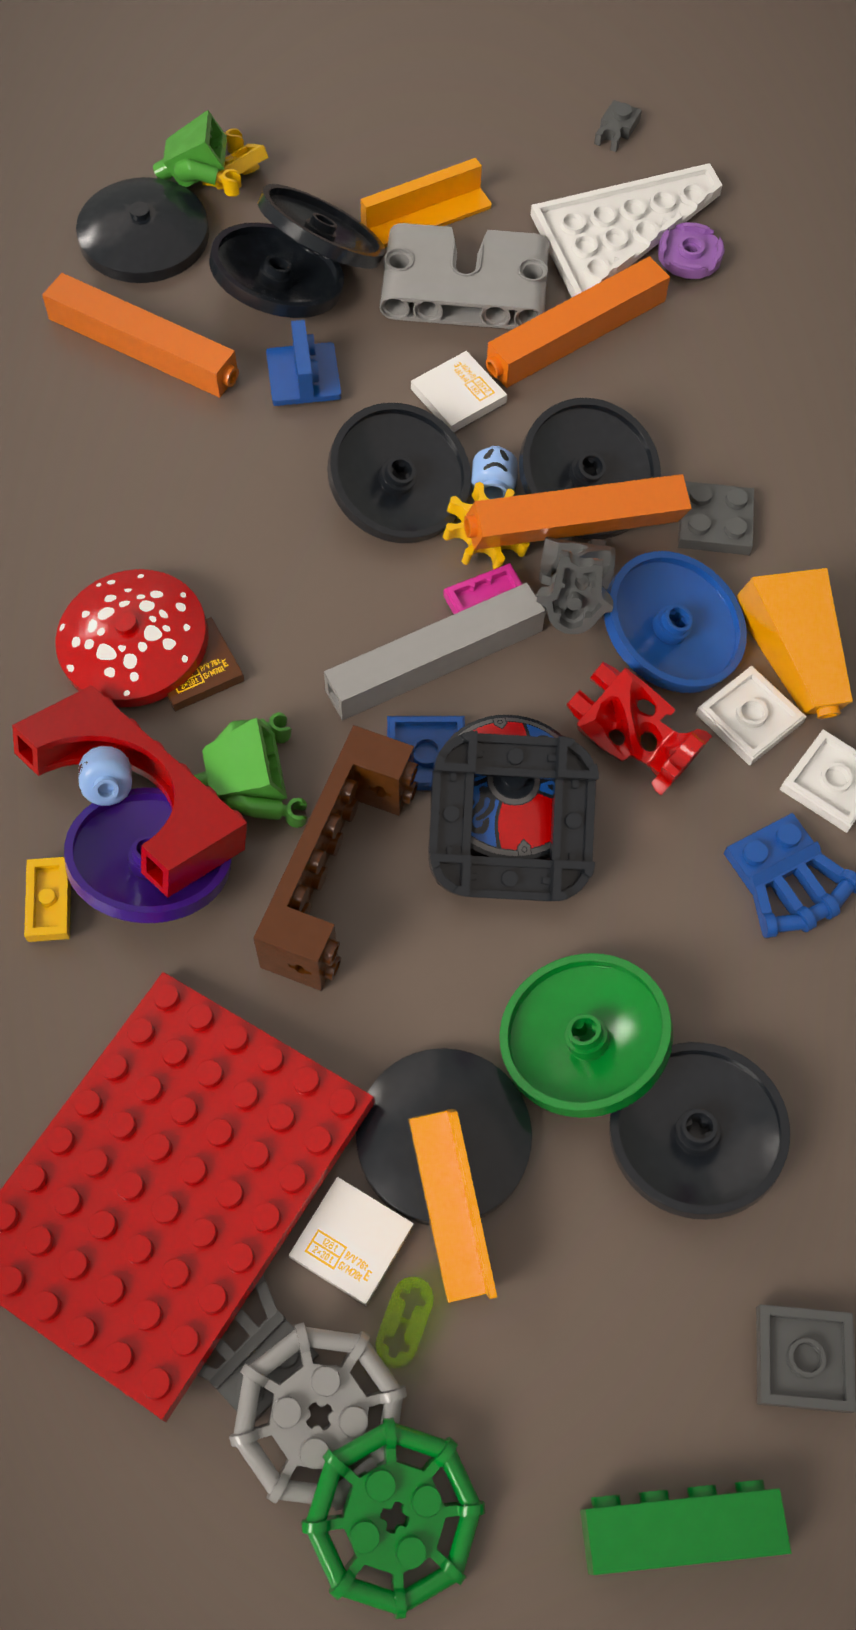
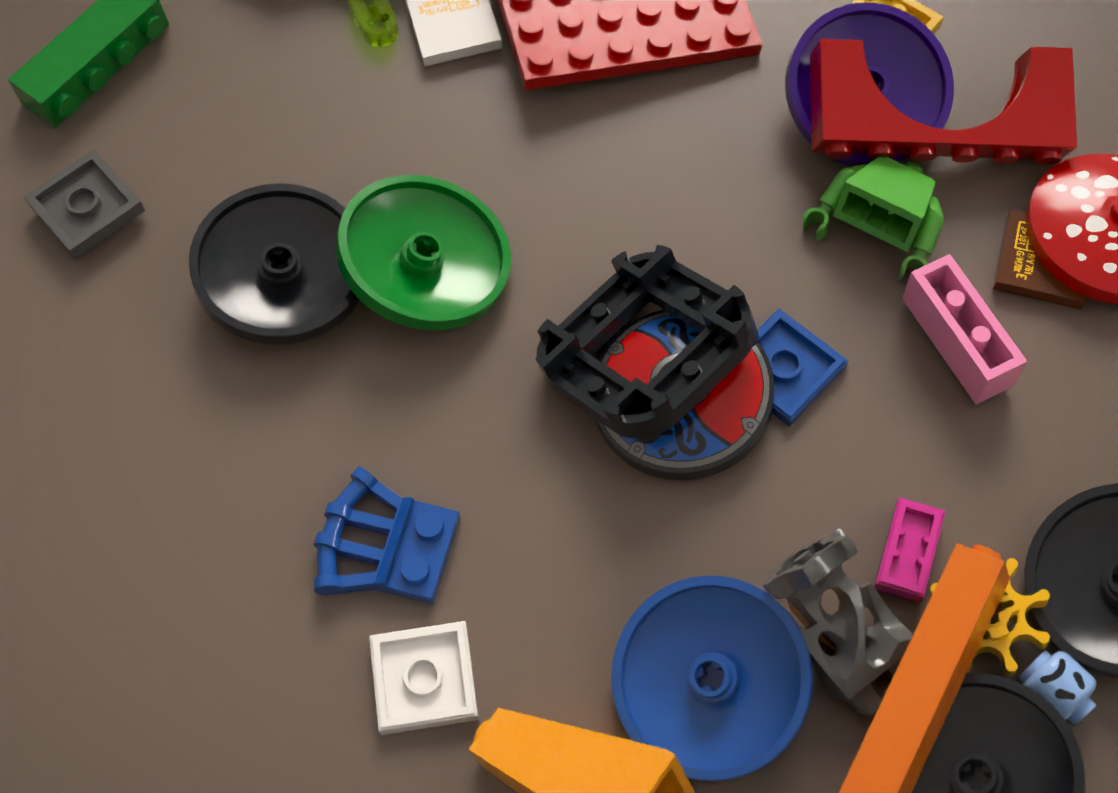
camera: 140 degrees right, 0 degrees up
(105, 776) = (969, 95): light blue head -> none
(307, 656) = (963, 329): none -> bright pink brick
(367, 771) = (702, 117): reddish brown plate -> none
(434, 651) = (882, 443): light grey brick -> none
(452, 1205) = (404, 74): light orange panel -> none
(490, 1116) = (461, 123): black dish -> none
(619, 711) = (655, 528): red hips -> none
(750, 715) = (558, 670): white tile -> none

